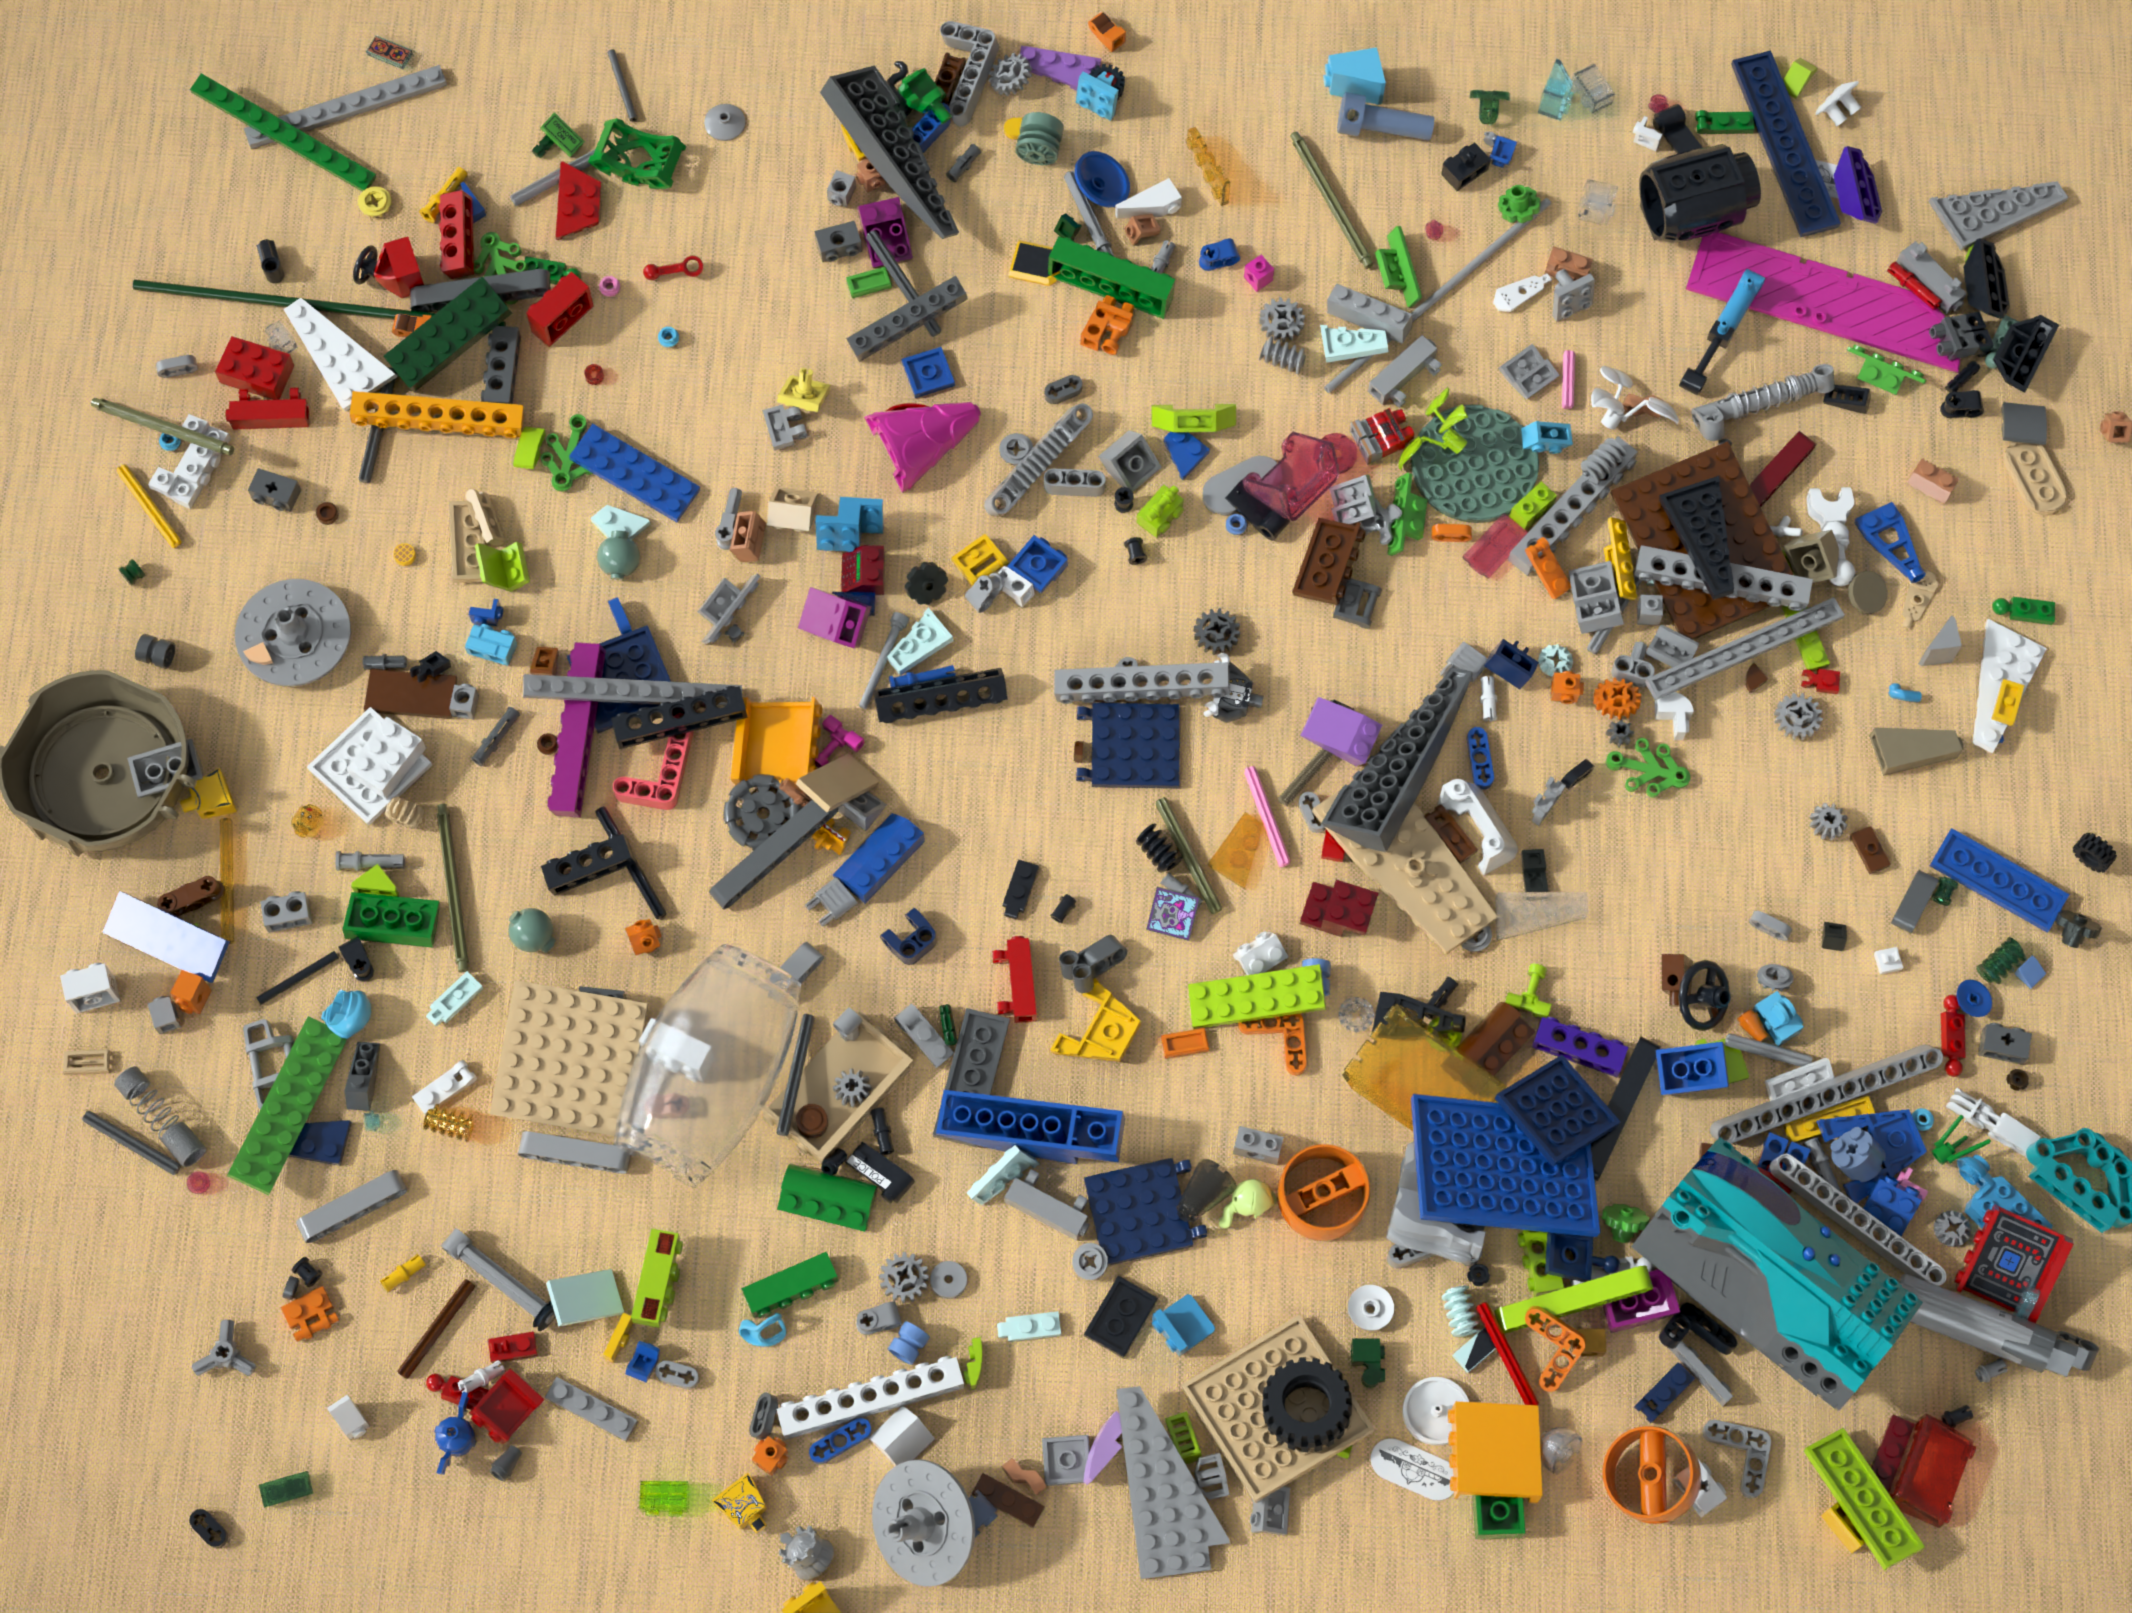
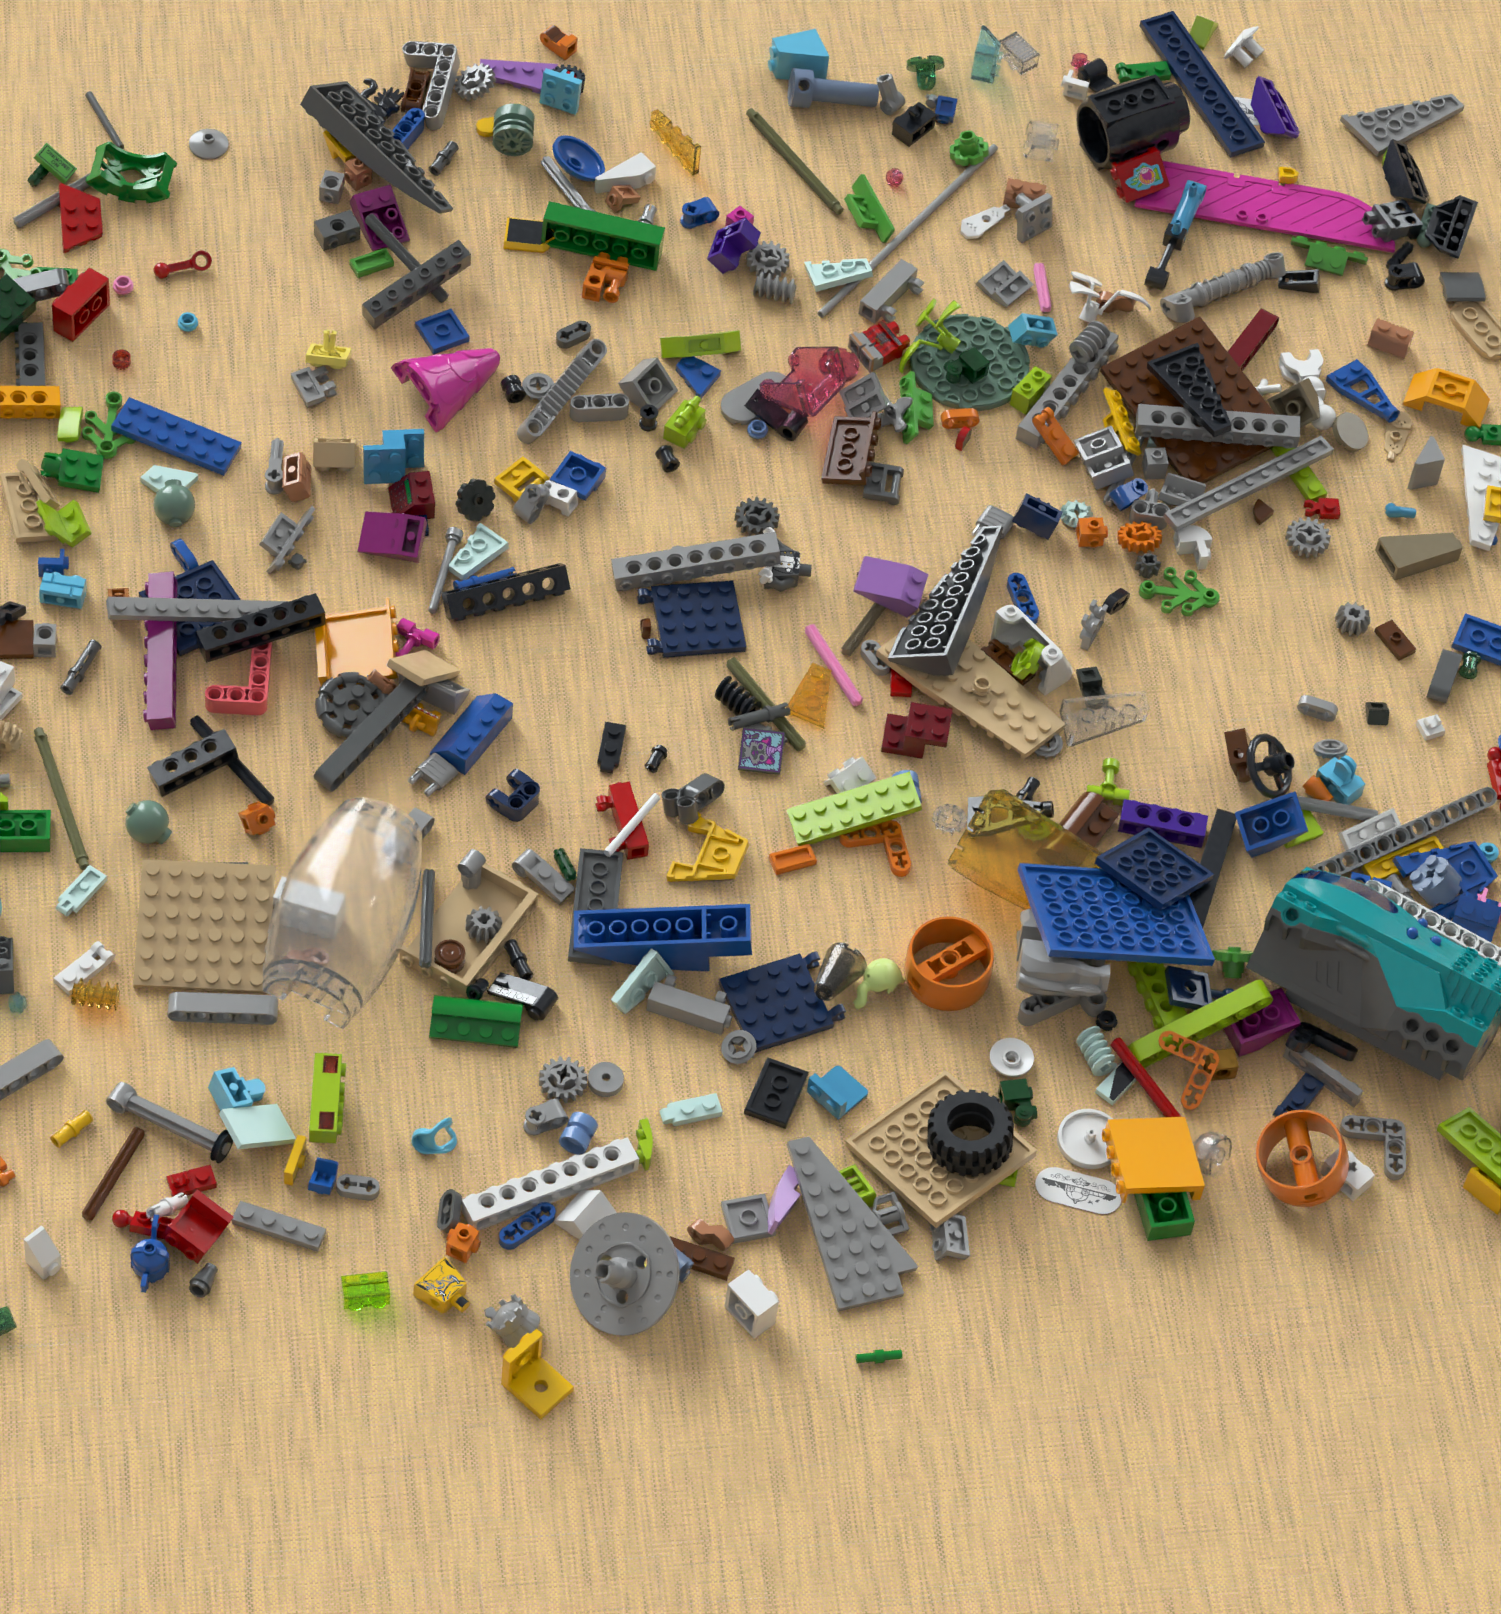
camera: 15 degrees left, 15 degrees down
(525, 502) = (74, 469): none -> green plate
(543, 739) = (132, 664): reddish brown plate -> none
(568, 1255) = (233, 1091): none -> medium azure brick
(790, 1285) = (454, 1096): green brick -> none
(924, 94) = (398, 100): green piece -> none
(988, 449) = (513, 389): none -> black wheel
(1002, 1010) = (613, 846): none -> white bar
(1050, 1566) = (751, 1303): none -> white brick
(1067, 227) = (551, 196): dark green tile -> none
(1185, 873) = (766, 714): none -> dark grey pin
(1245, 298) = (731, 243): none -> dark purple brick
(1258, 1145) = (879, 933): light grey brick -> none
(1369, 313) = (846, 244): light grey brick -> none
(1446, 132) = (891, 98): none -> light grey piece
(1451, 556) = (962, 438): none -> red tile
(1468, 841) = (1027, 660): none -> lime plate
(1472, 470) = (970, 364): none -> dark green brick
(1488, 698) = (1021, 550): white pin -> none
(1494, 546) = (1000, 427): clear pink piece -> none
(1614, 645) = (1127, 493): none -> blue piece
(1695, 258) = (1140, 175): none -> red panel
(1858, 265) = (1287, 175): none -> yellow tile
(1908, 280) = (1345, 188): red pin -> none
(1930, 274) = (1355, 178): light grey brick -> none
(1983, 557) = (1450, 392): none -> light orange slope

